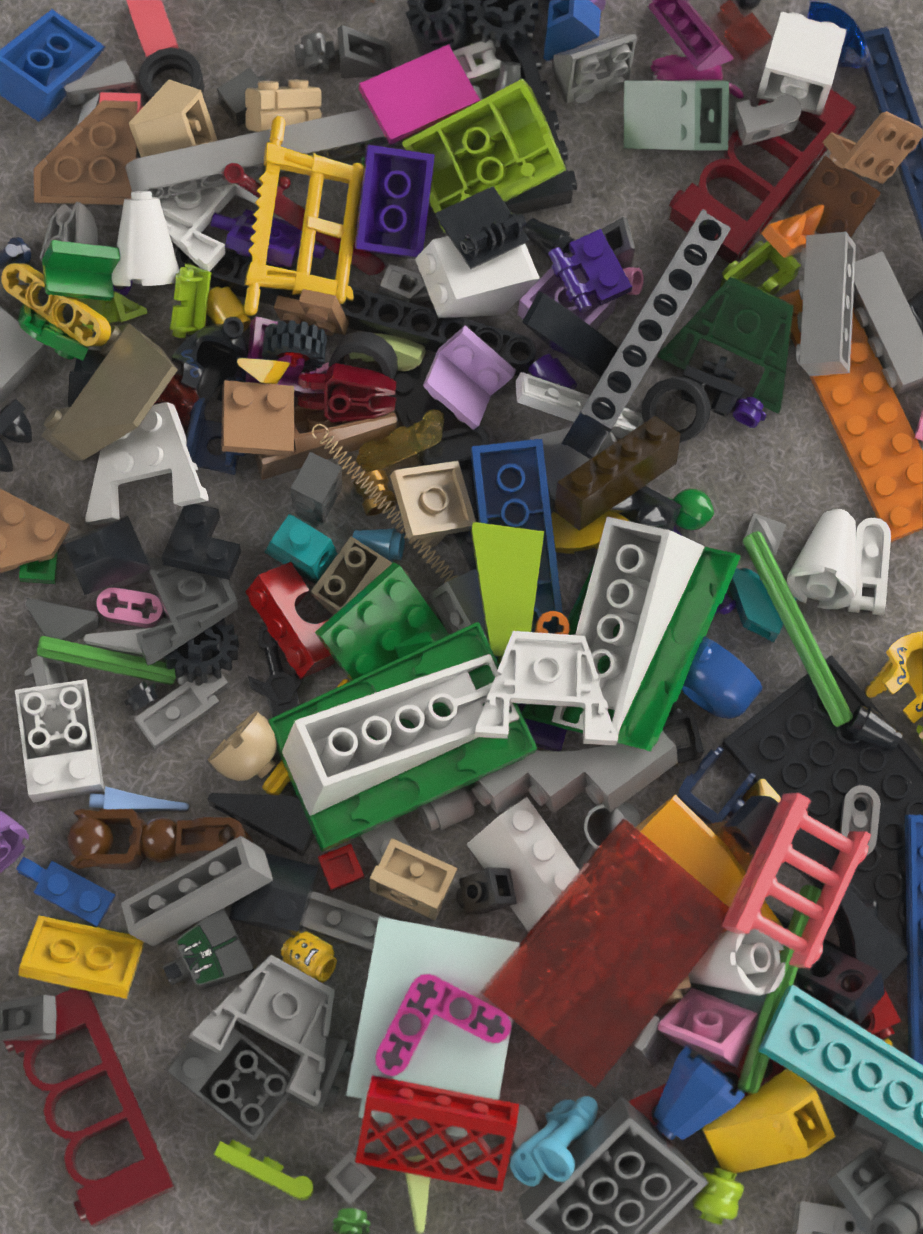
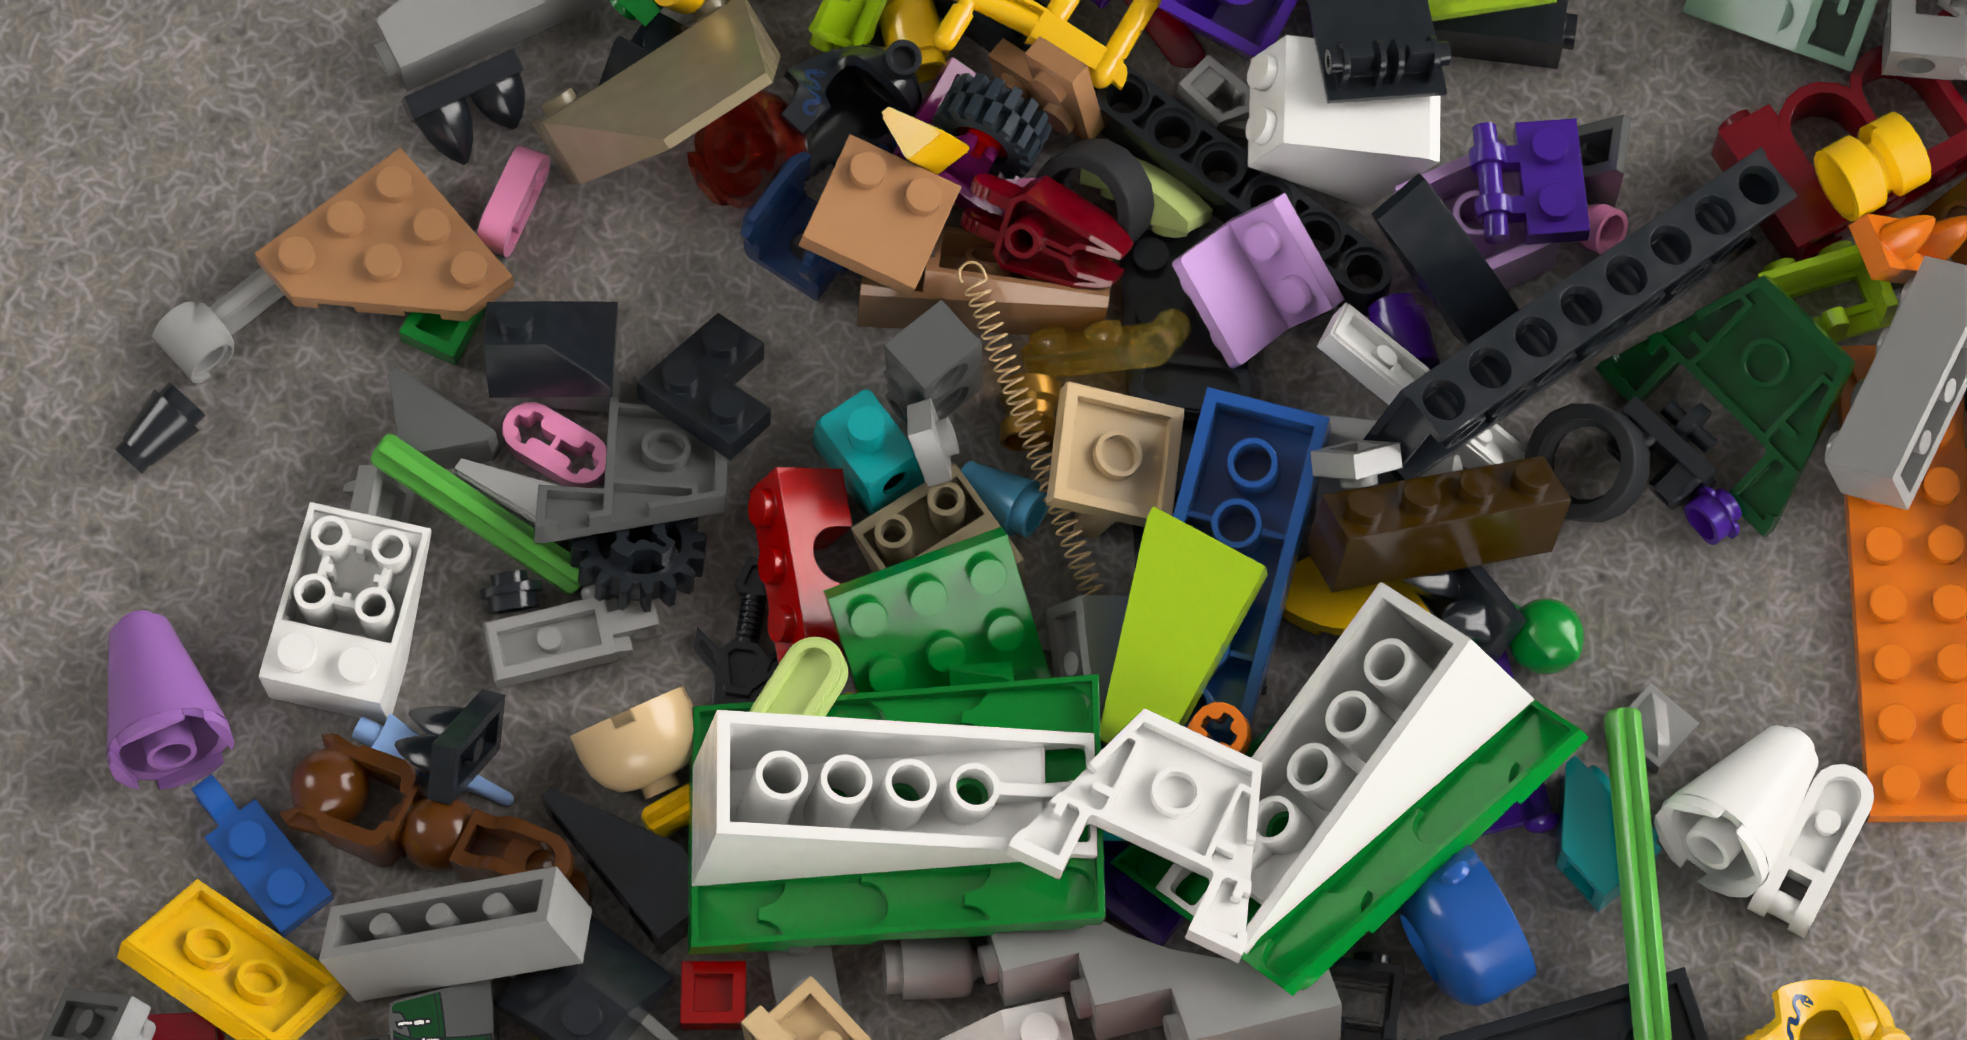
camera: 30 degrees right, 5 degrees down
(49, 481) = (513, 200): none -> bright pink beam
(146, 452) = (674, 201): white wing -> none
(150, 789) = (456, 743): none -> black tile
(323, 686) = (805, 680): none -> yellowish green tile
(335, 529) = (932, 441): none -> light grey plate
(547, 237) = (1490, 103): black cone -> none
(565, 456) = (1356, 461): none -> light grey plate
(757, 201) = (1866, 169): none -> yellow wheel

